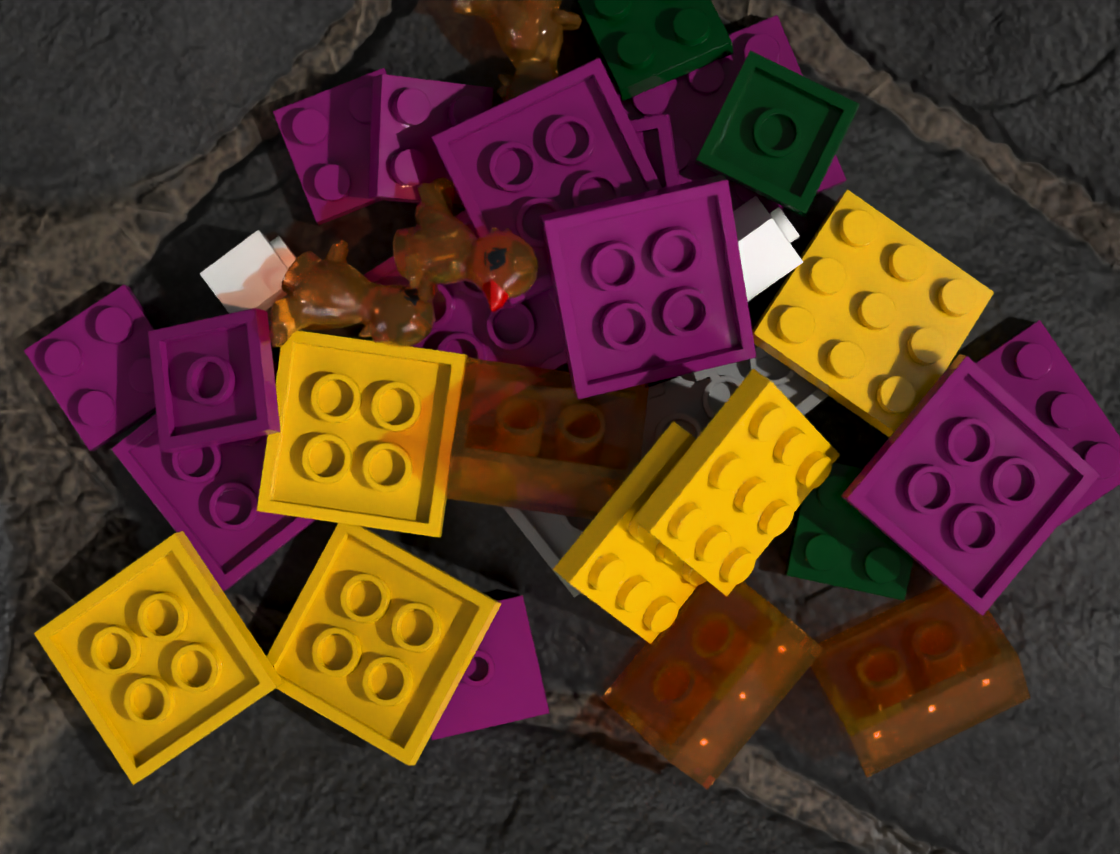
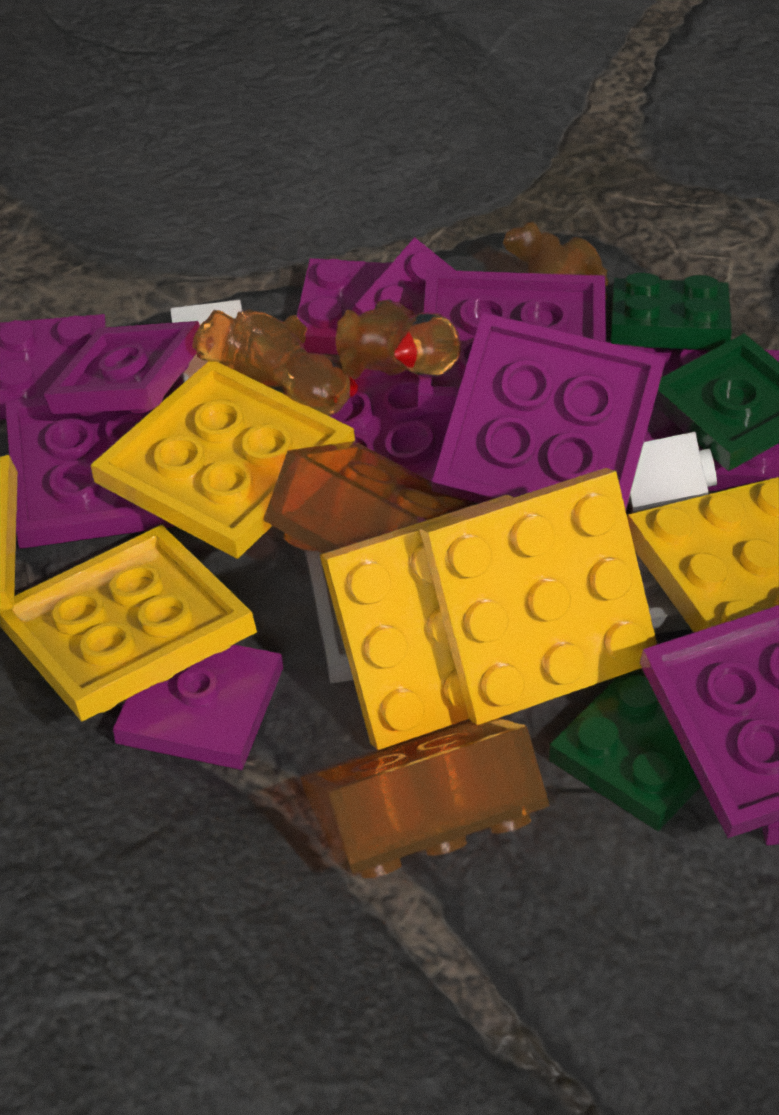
camera: 30 degrees right, 40 degrees down
(917, 677) = (637, 888): clear orange slope -> none

